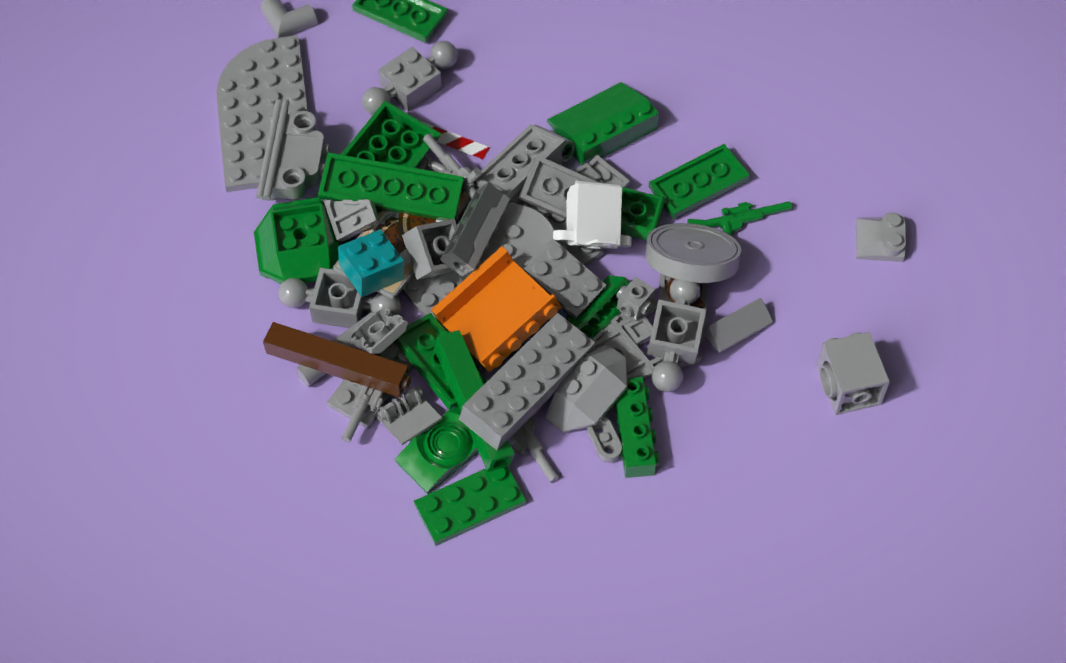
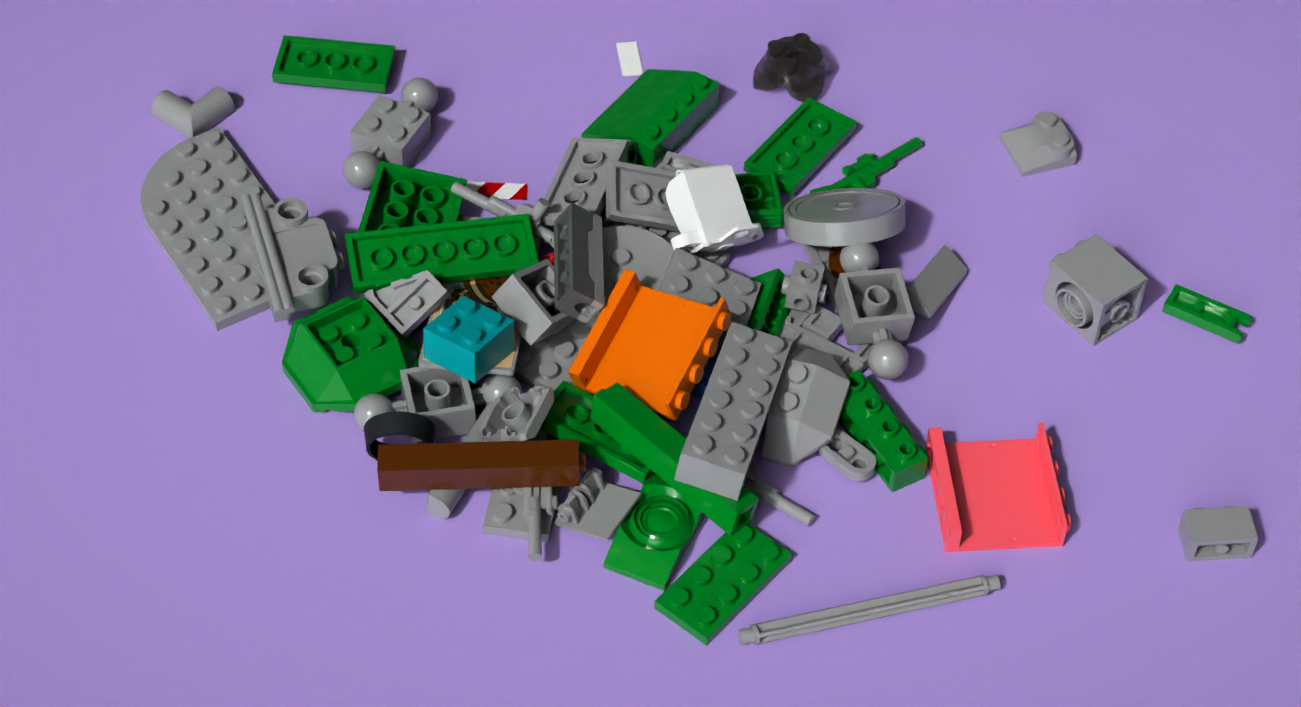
camera: 25 degrees left, 10 degrees down
(297, 316) = (397, 424): none -> black tyre
(559, 562) = (868, 609): none -> light grey piece
(613, 69) = (629, 59): none -> white sticker
(697, 506) = (997, 493): none -> coral panel
(726, 115) = (794, 64): none -> clear smoke brick
(843, 599) = (1217, 533): none -> light grey brick
(933, 419) = (1206, 313): none -> green hinge

